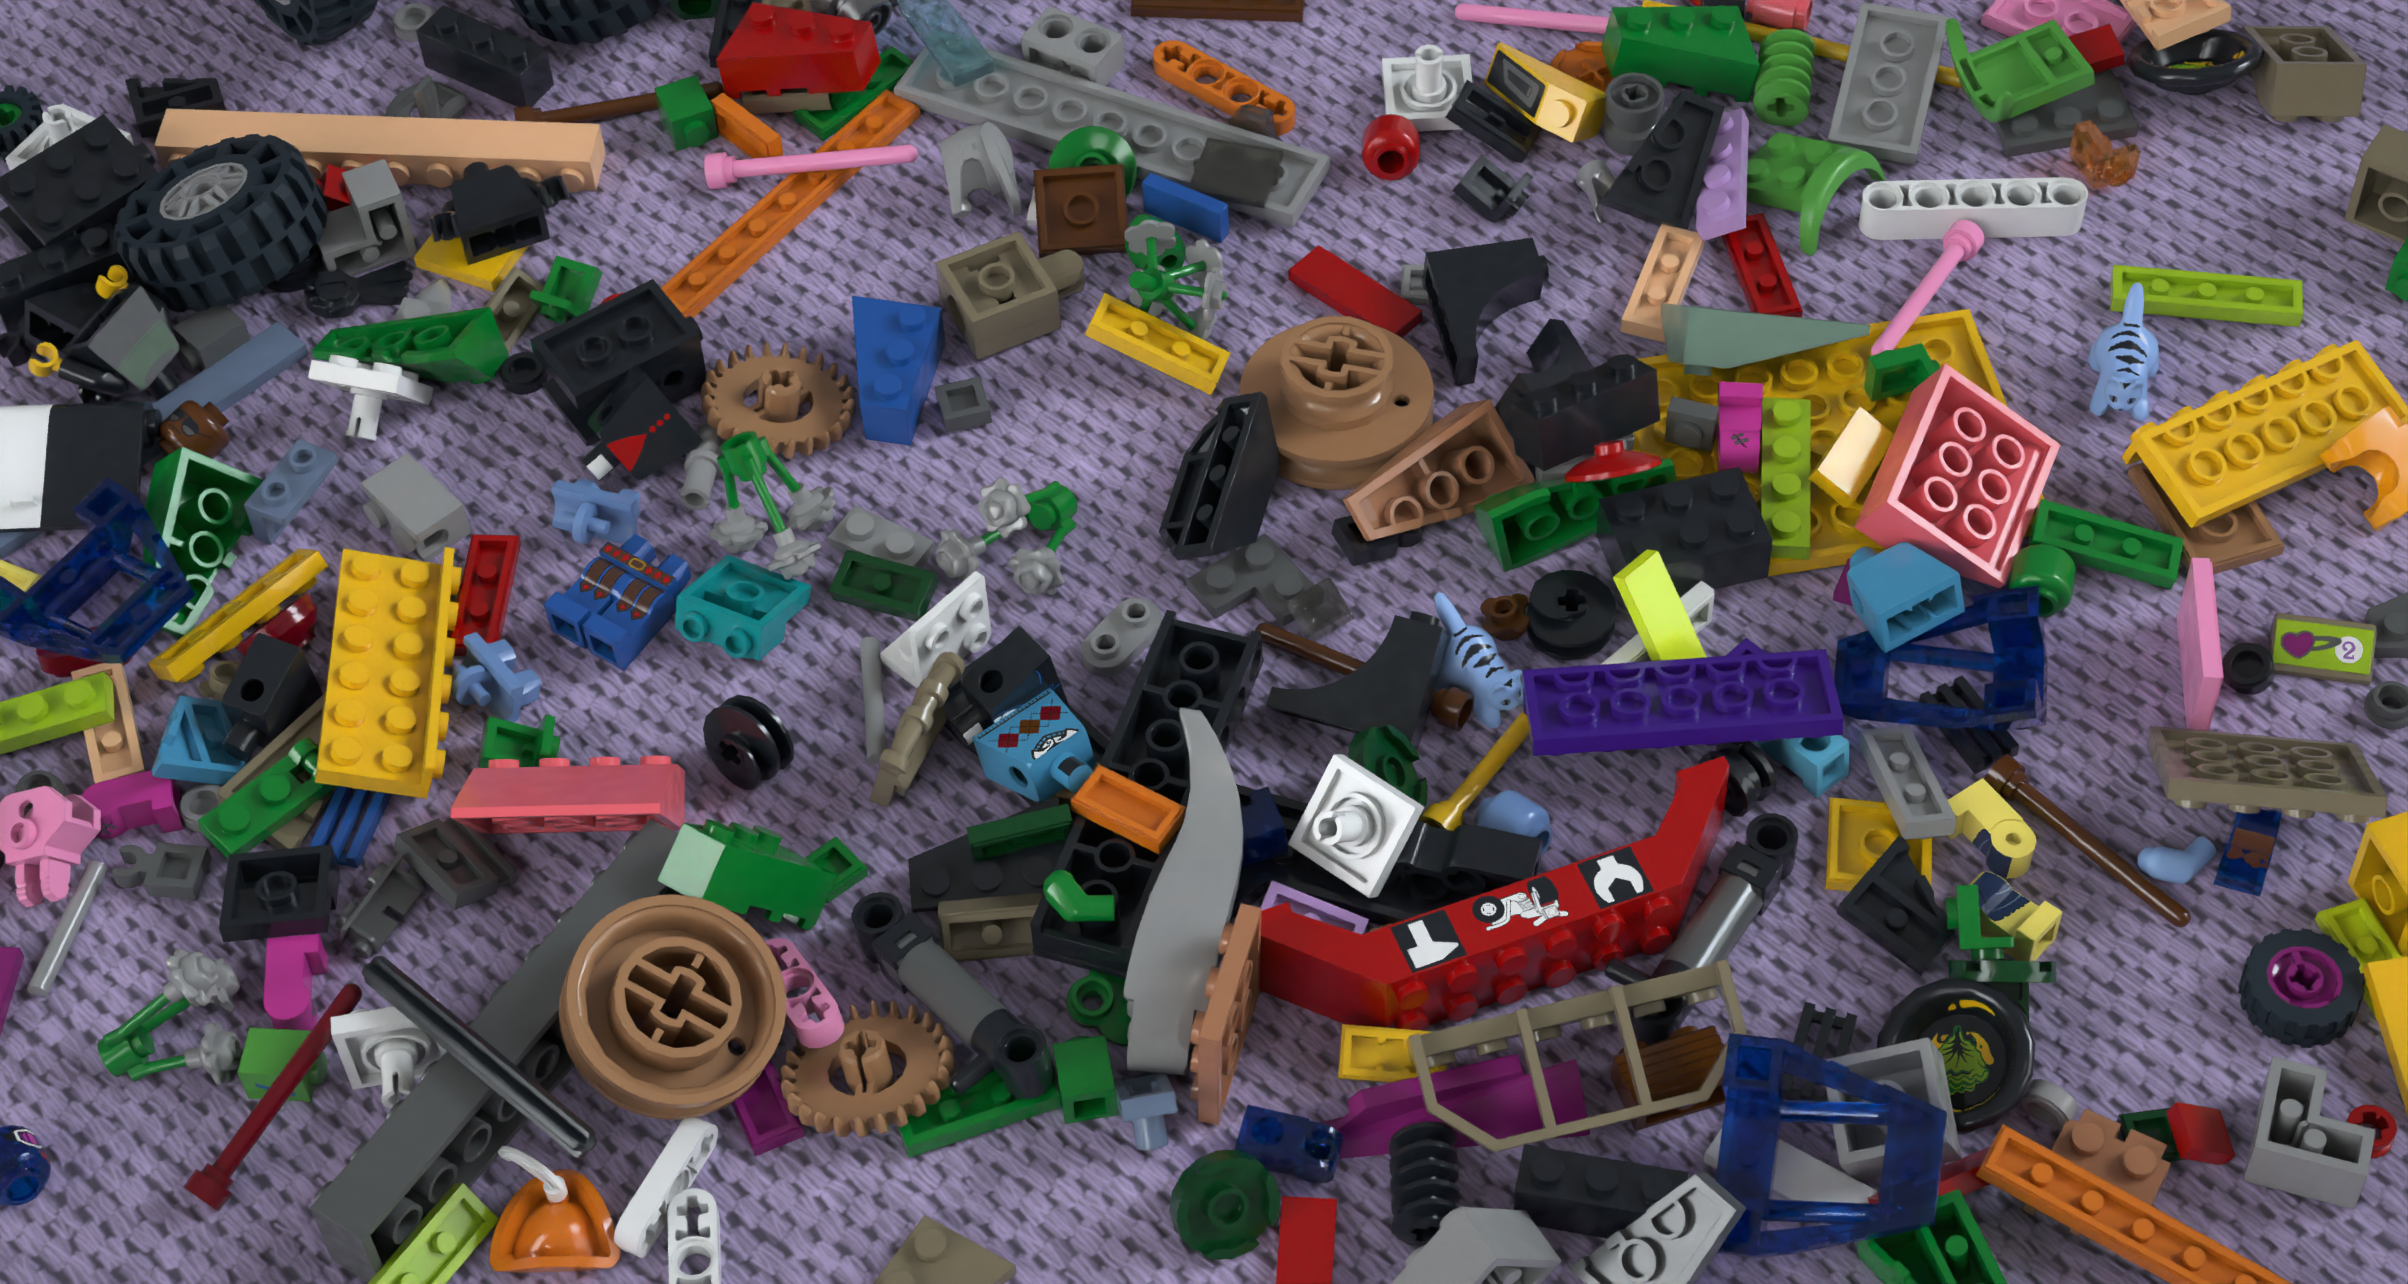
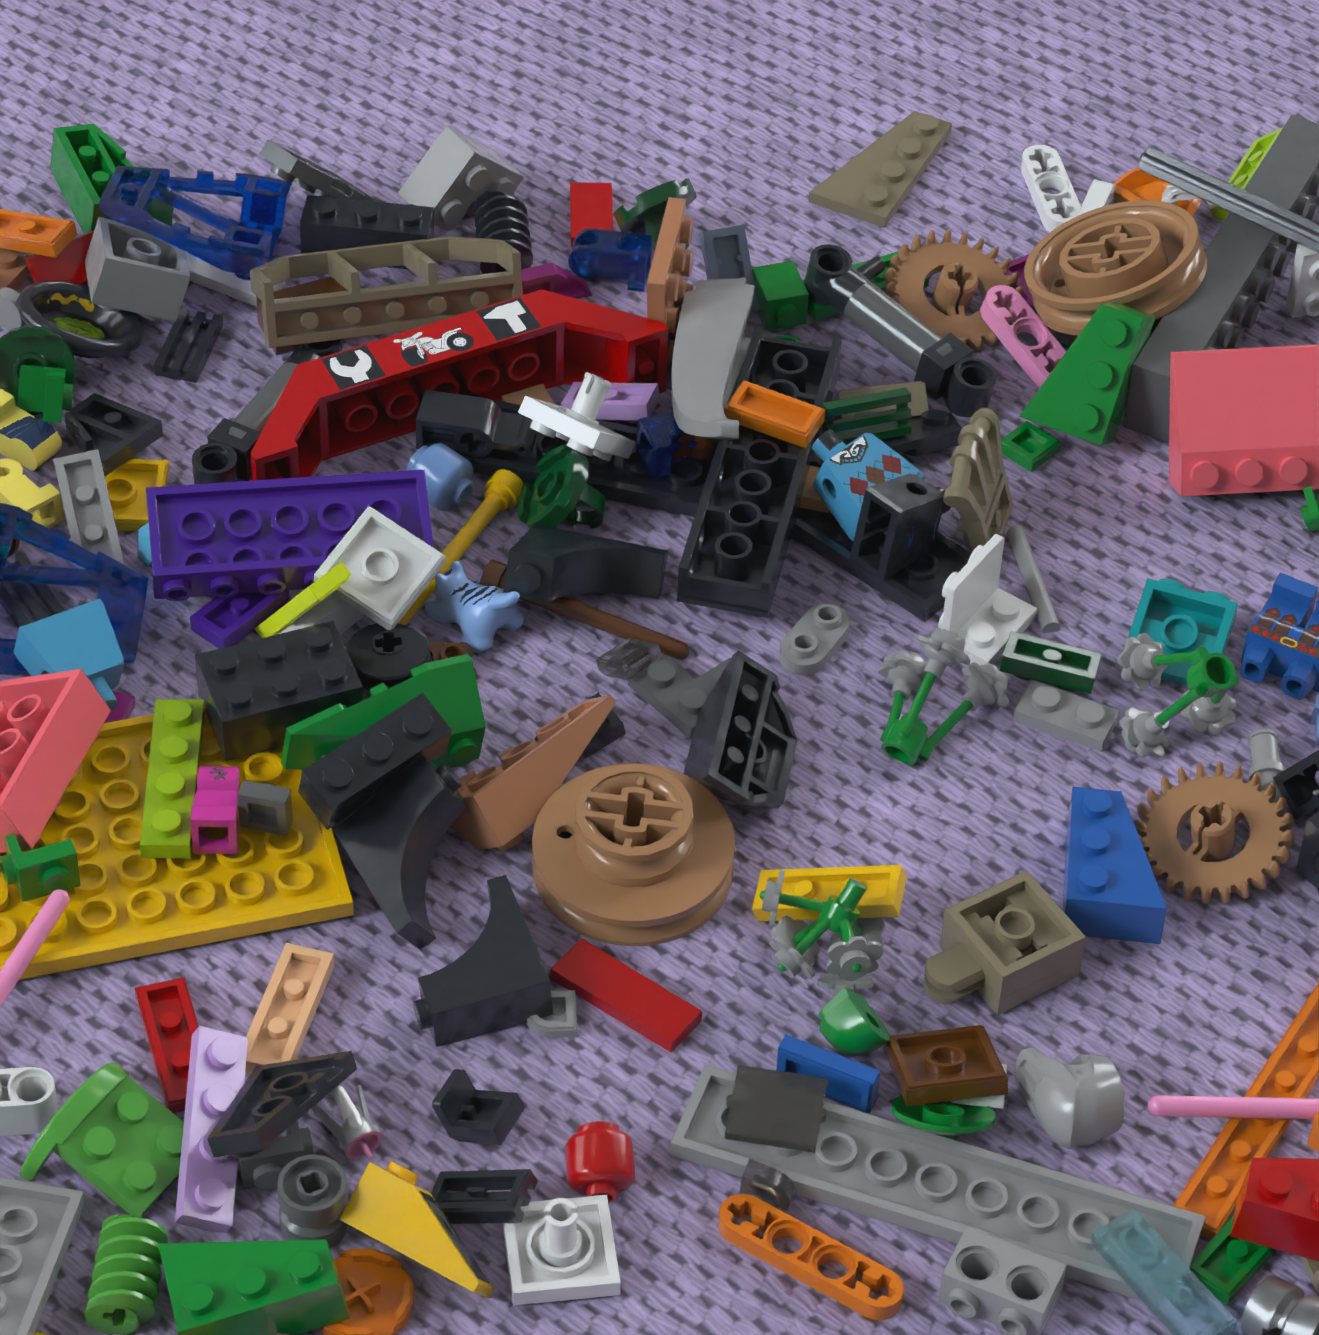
camera: 170 degrees right, 5 degrees down
(747, 741) = (1129, 505): black piece -> none
(963, 404) = (1022, 846): dark grey plate -> none
(1074, 903) = (798, 339): green arm -> none
(1582, 651) = (385, 565): none -> white tile
(1611, 462) = (328, 689): red dish -> none
(1731, 338) = (204, 909): sand green wedge -> none
(1852, 457) = (102, 787): tile -> none

